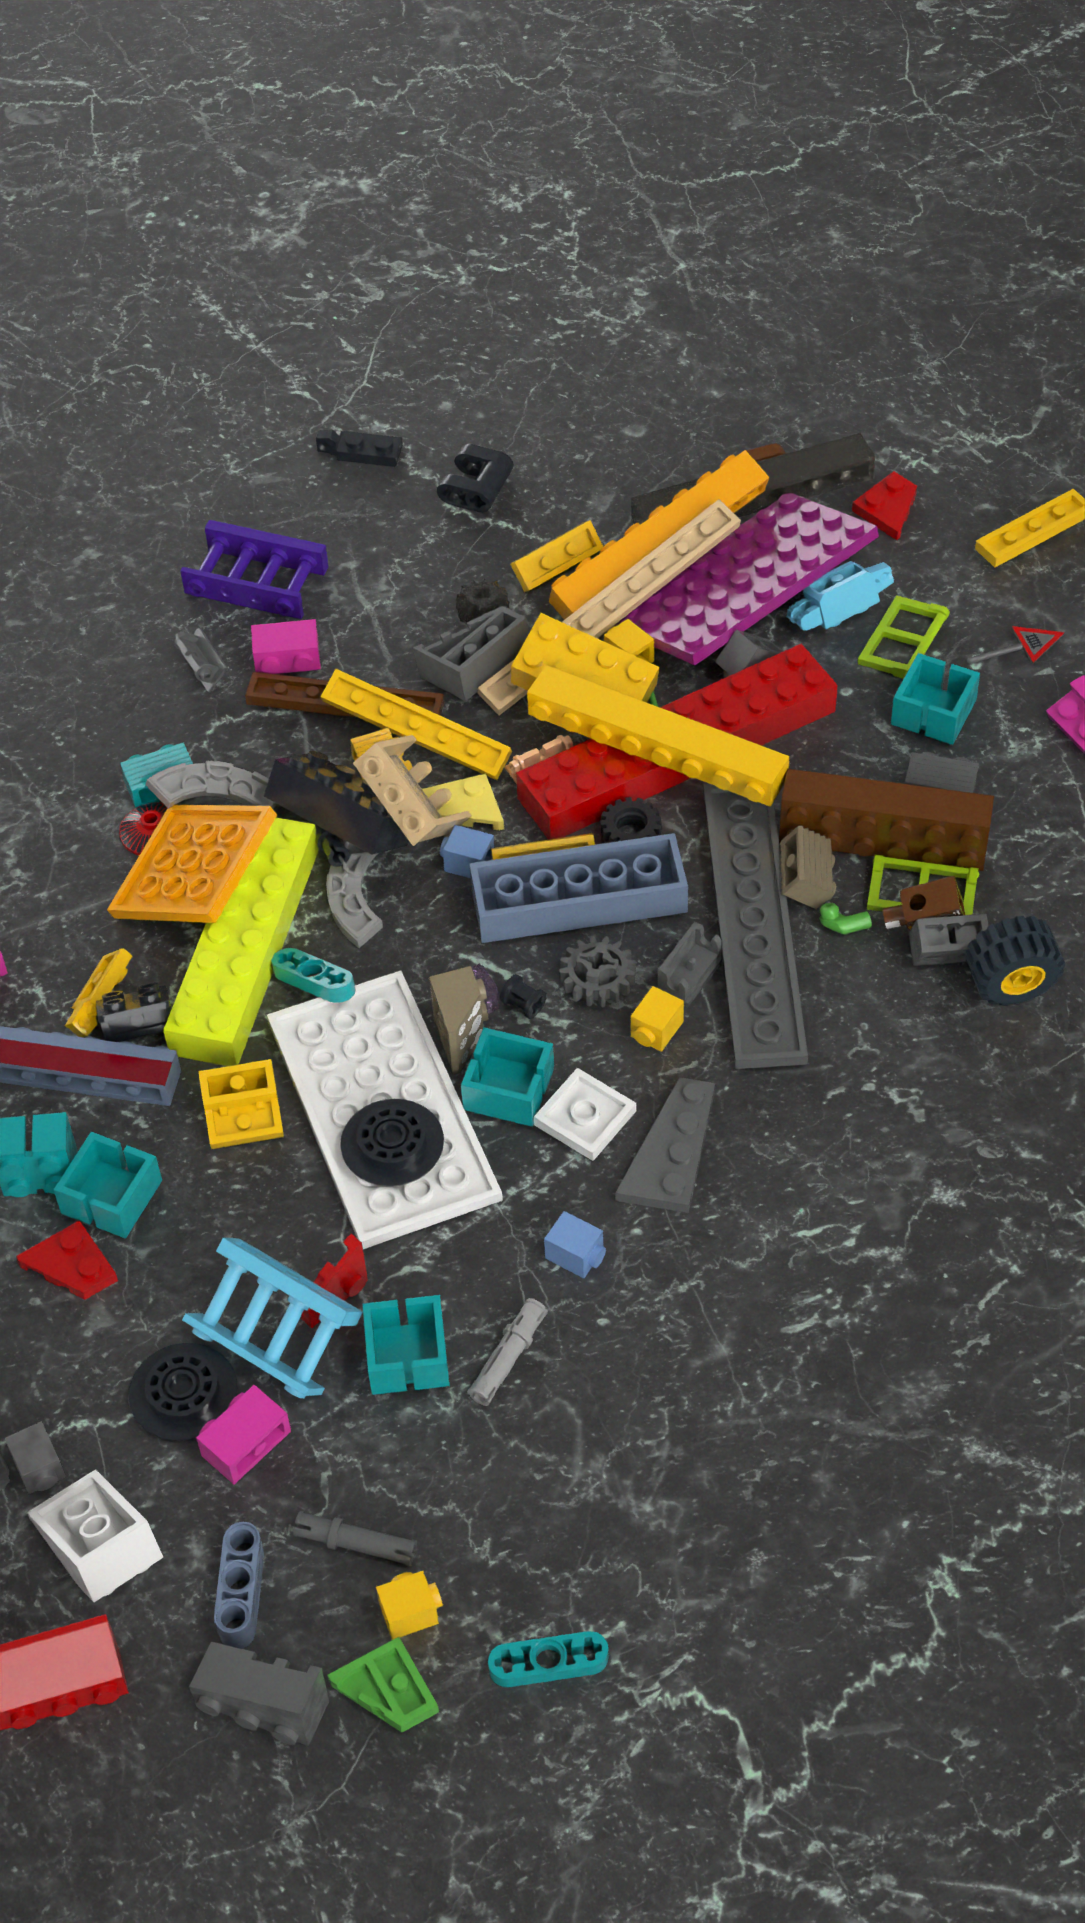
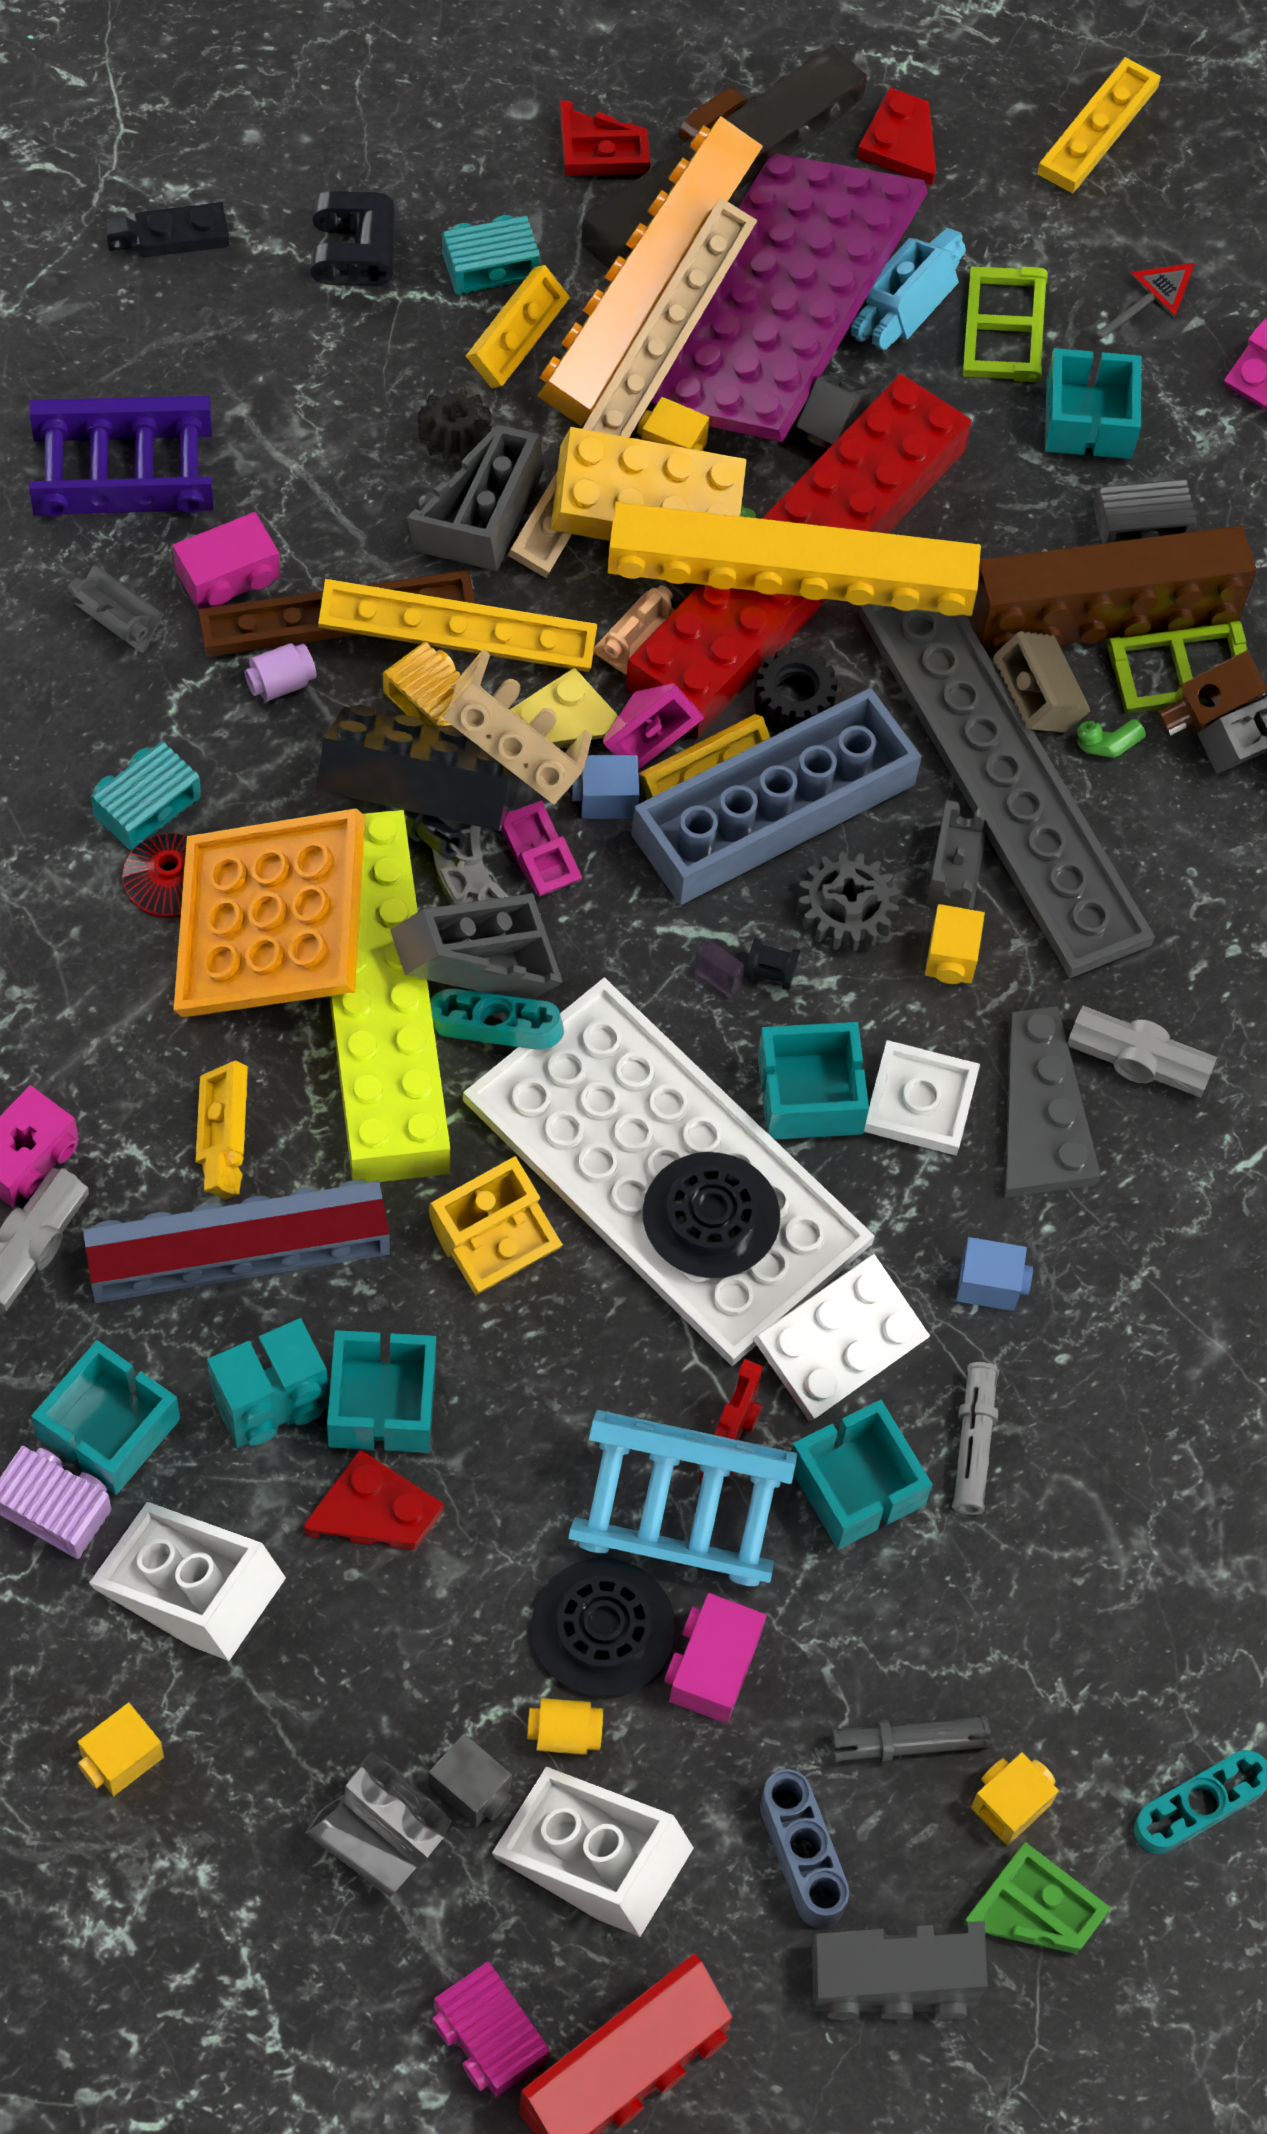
camera: 30 degrees left, 10 degrees up
(118, 1445) = (565, 1726): none -> yellow brick
(134, 1013) = (296, 1143): black bracket -> none
(210, 779) = (236, 782): light grey tile -> none
(286, 723) = (280, 671): none -> lavender brick
(316, 919) = (480, 947): none -> dark grey wedge
(403, 879) = (539, 850): none -> dark pink slope
(445, 1252) = (841, 1337): none -> white plate
(458, 1013) = (709, 1017): dark tan slope -> none
(515, 820) = (652, 723): none -> dark pink slope
(560, 507) = (489, 253): none -> teal brick
(672, 460) = (601, 144): none -> red wing
(761, 1131) = (1141, 1051): none -> light grey piece

